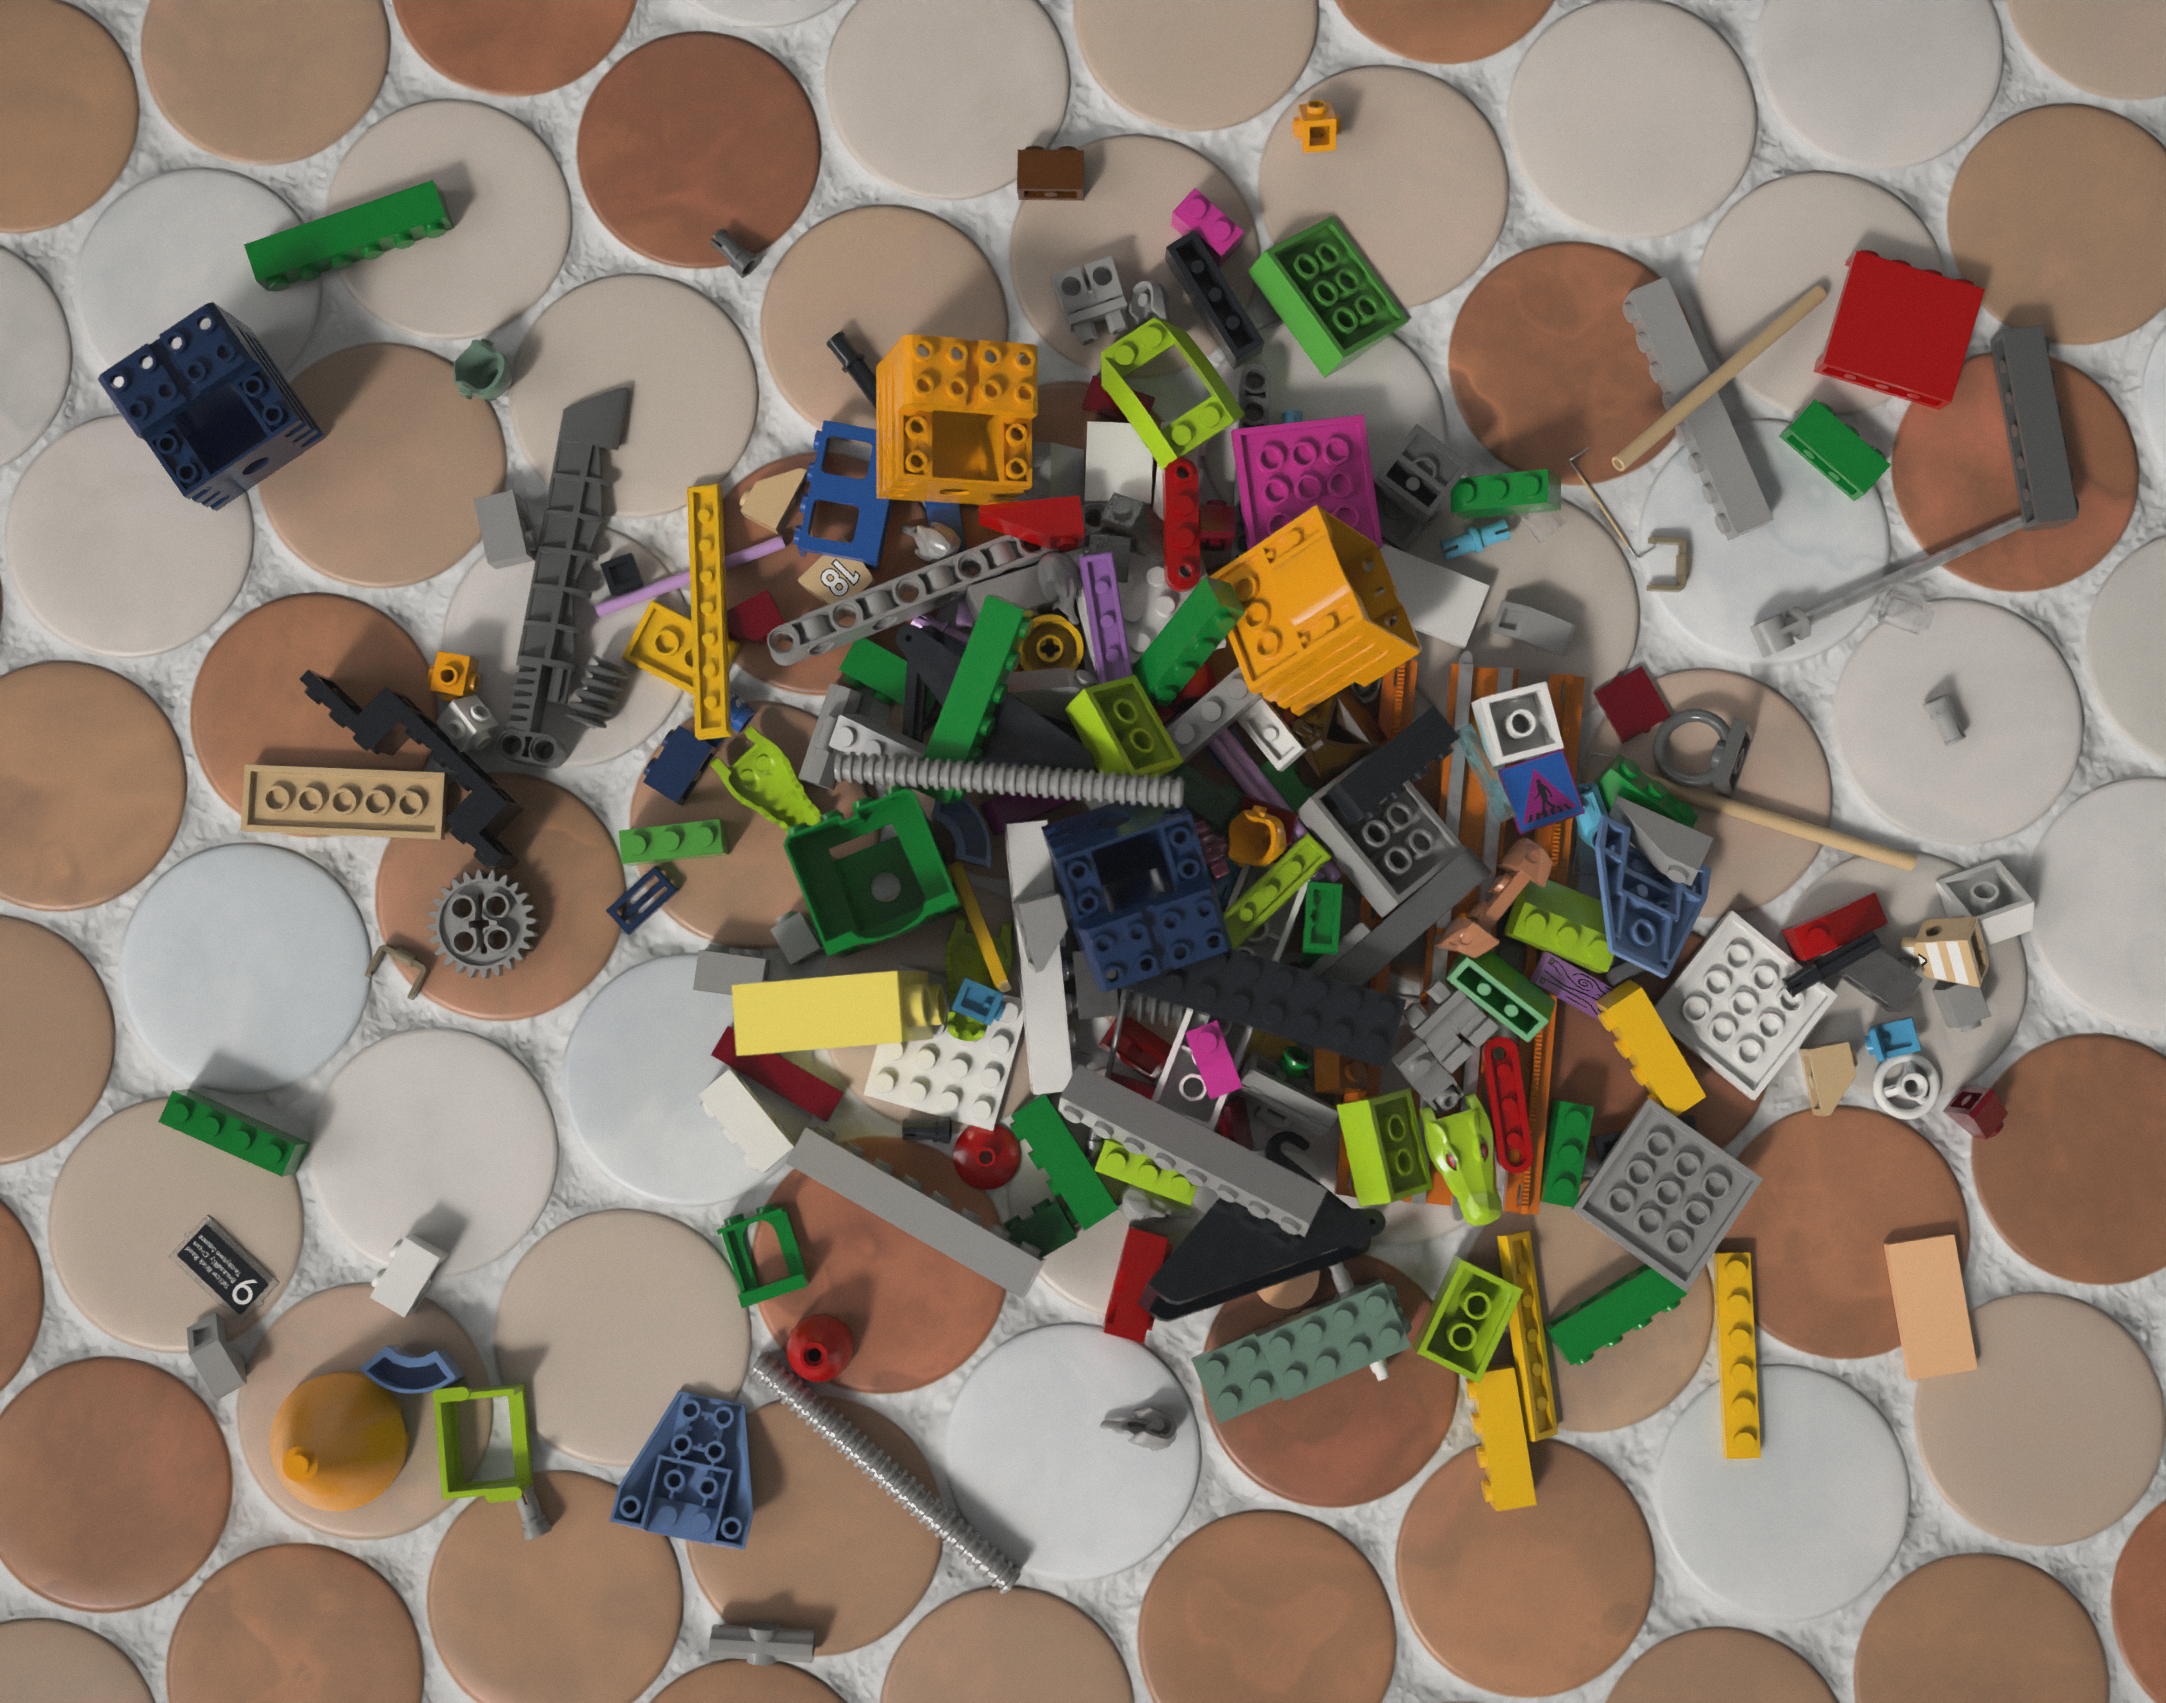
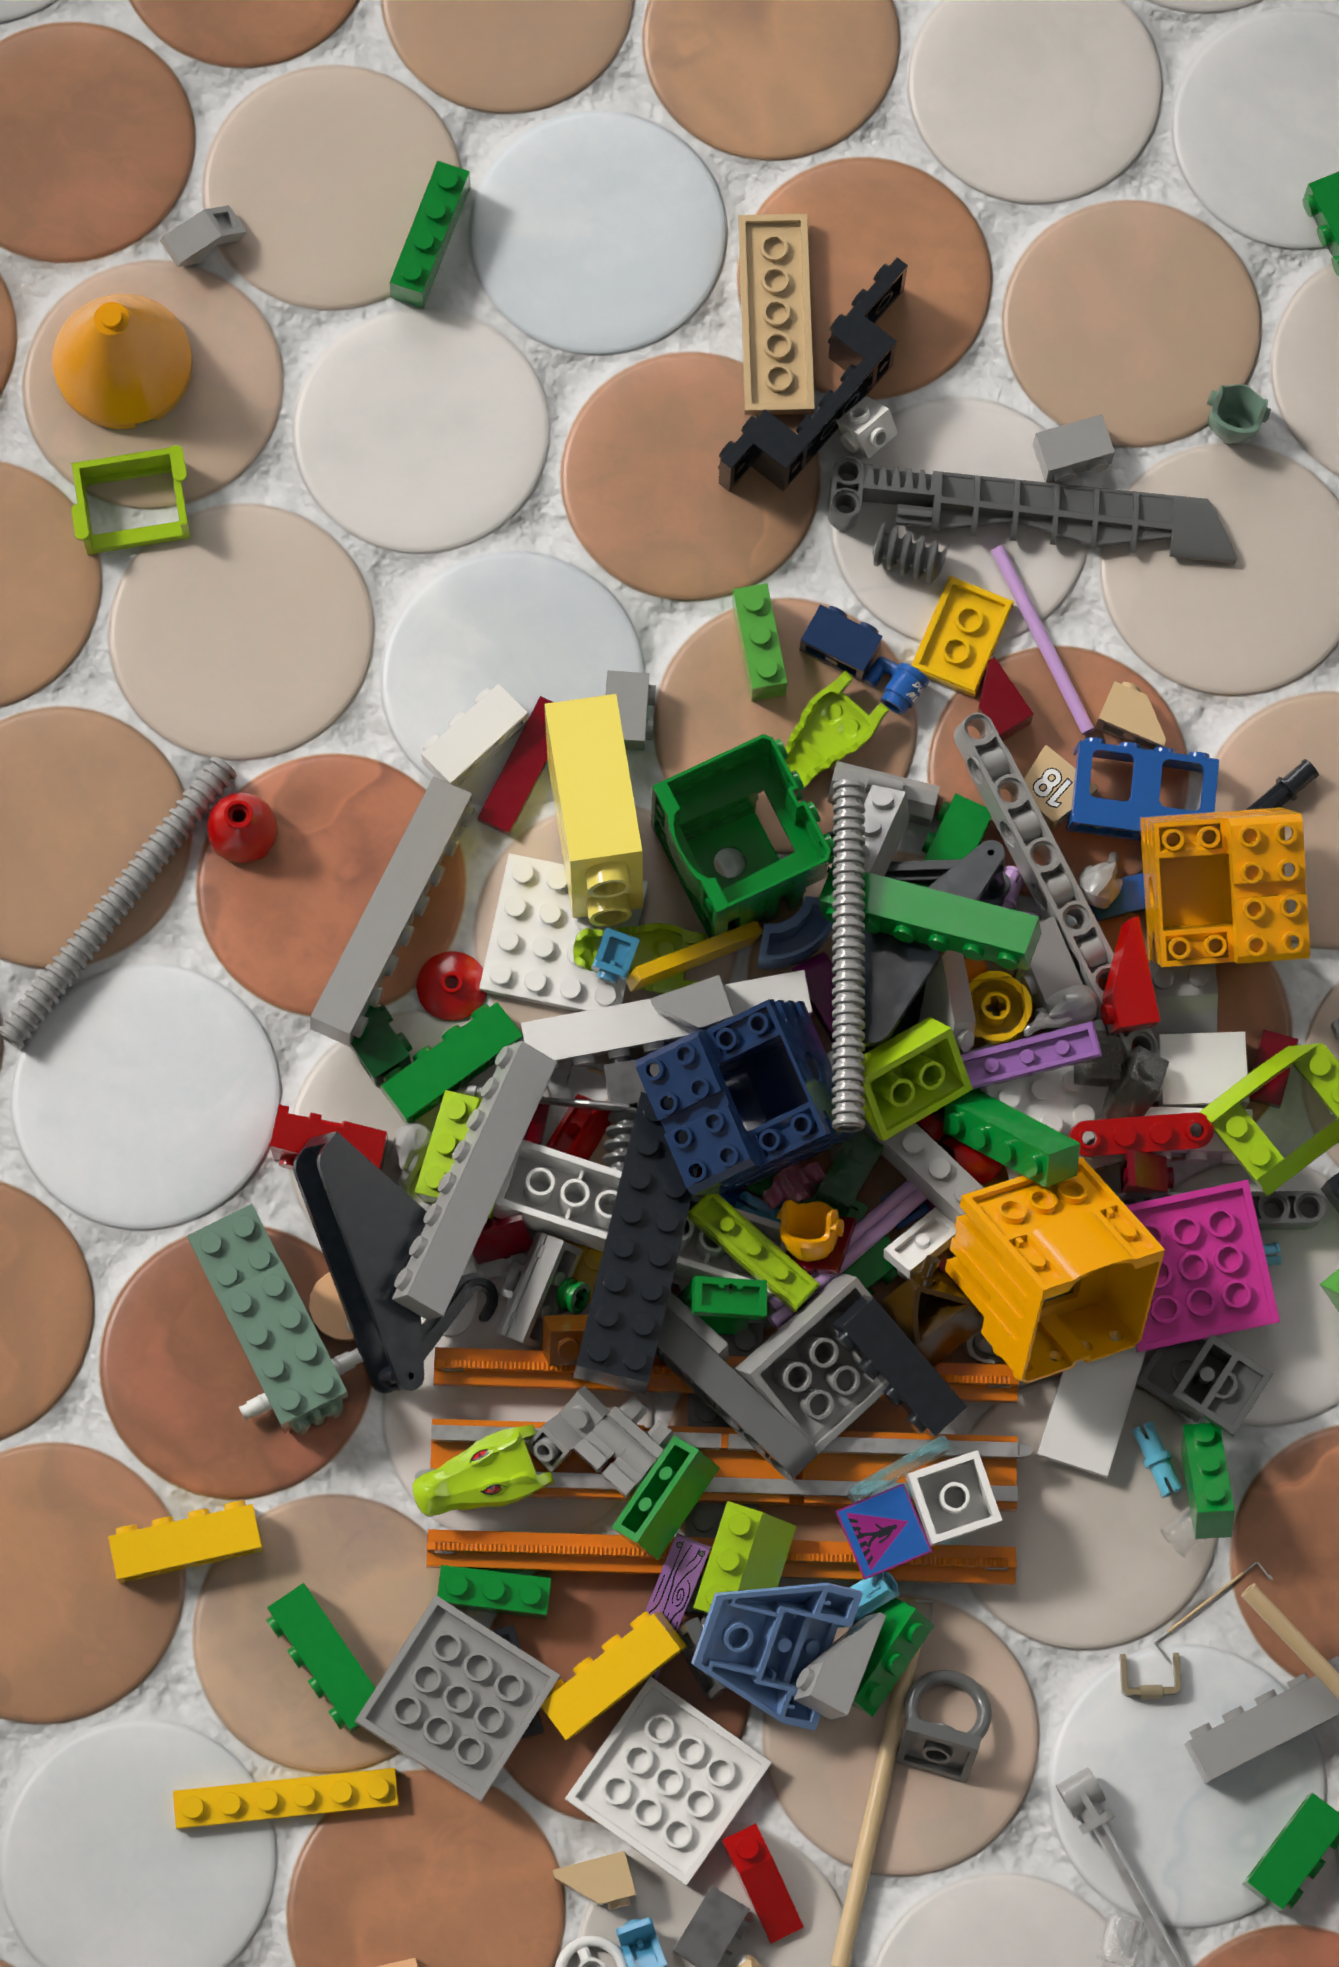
camera: 80 degrees right, 10 degrees down
(212, 407) = (1166, 155): dark blue piece -> none
(224, 1269) = (290, 236): piece -> none
(405, 957) = (619, 387): dark tan piece -> none
(408, 1275) = (295, 414): white brick -> none
(412, 1374) = (196, 426): medium blue brick -> none
(453, 676) = (914, 409): light orange brick -> none
(453, 926) = (656, 429): light grey gear -> none
(534, 1521) = (51, 556): light grey pin -> none
(622, 574) = (1037, 570): black plate -> none
(652, 909) = (689, 628): dark blue tile -> none
(692, 1475) = (105, 707): medium blue wedge -> none
(709, 612) = (1005, 656): yellow tile -> none
(733, 1237) = (353, 733): green panel -> none
(797, 937) = (665, 763): light grey brick -> none
(934, 1129) = (476, 928): black pin -> none
(1153, 1429) = (173, 1176): light grey piece -> none
(1213, 1060) = (572, 1196): dark pink arch -> none
(1384, 1147) = (490, 1387): lime slope -> none
(1467, 1319) = (310, 1493): lime slope -> none
(1507, 1104) = (543, 1516): red plate -> none
(1520, 864) = (797, 1509): nougat piece -> none
(1528, 1337) = (295, 1564): yellow plate -> none
(1533, 627) = (1065, 1527): light grey slope -> none
(1631, 704) = (991, 1645): dark red piece -> none
(1831, 963) = (721, 1868): black axle -> none

